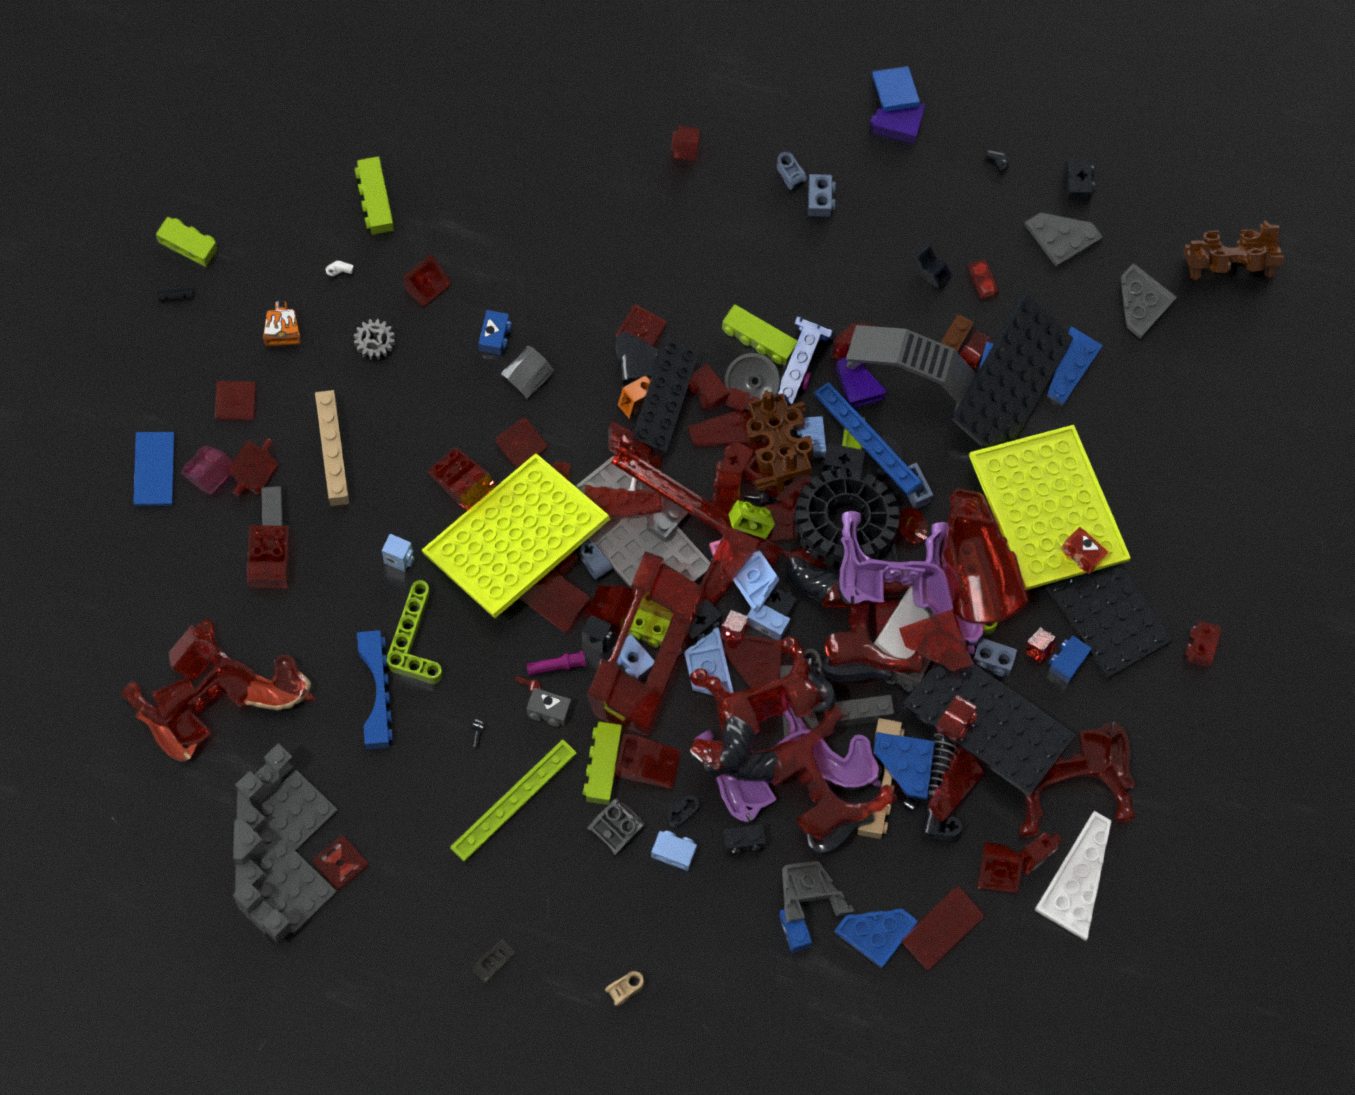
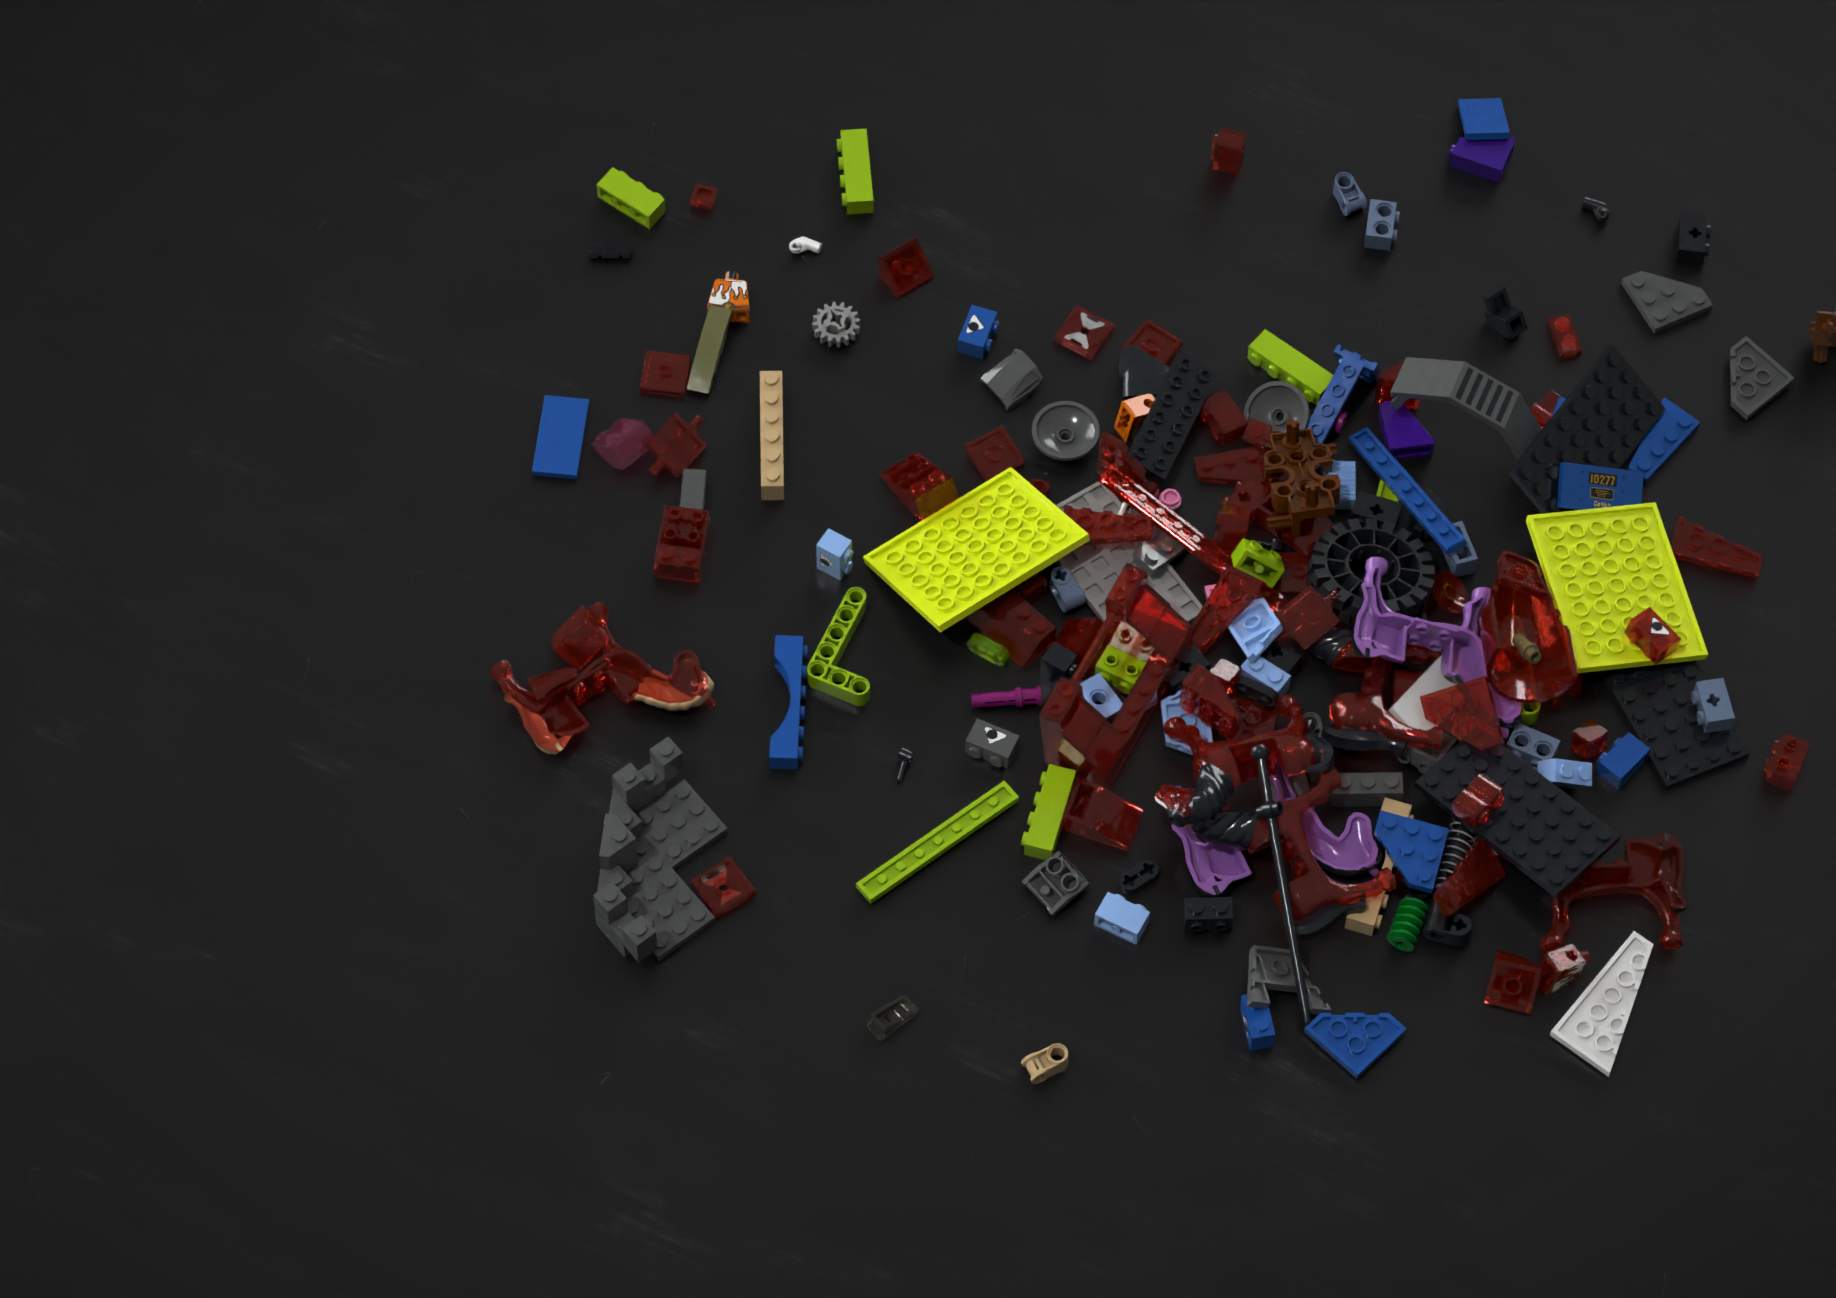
camera: 10 degrees right, 10 degrees down
(248, 233) = (703, 196): none -> clear red plate
(270, 375) = (709, 349): none -> olive slope
(533, 683) = (973, 716): clear red hand -> none
(535, 621) = (988, 649): none -> clear neon green beam
(578, 405) = (1068, 421): none -> dark grey dish
(581, 310) = (1091, 343): none -> clear red piece
(671, 467) = (1170, 498): none -> bright pink plate
(723, 649) = (1207, 699): none -> clear red slope
(769, 638) = (1259, 692): none -> black plate
(787, 753) = (1270, 811): none -> black bar
(798, 567) = (1307, 617): none -> clear red plate
(907, 826) = (1407, 924): none -> green piece
(942, 928) = (1435, 1040): clear red plate -> none
(958, 333) = (1531, 386): reddish brown brick -> none
(983, 575) = (1528, 650): none -> olive pin
(1025, 419) = (1597, 487): none -> blue tile
(1025, 679) = (1566, 773): none -> light blue brick
(1116, 459) = (1703, 548): none -> clear red wing
(1139, 592) = (1713, 705): none -> sand blue brick

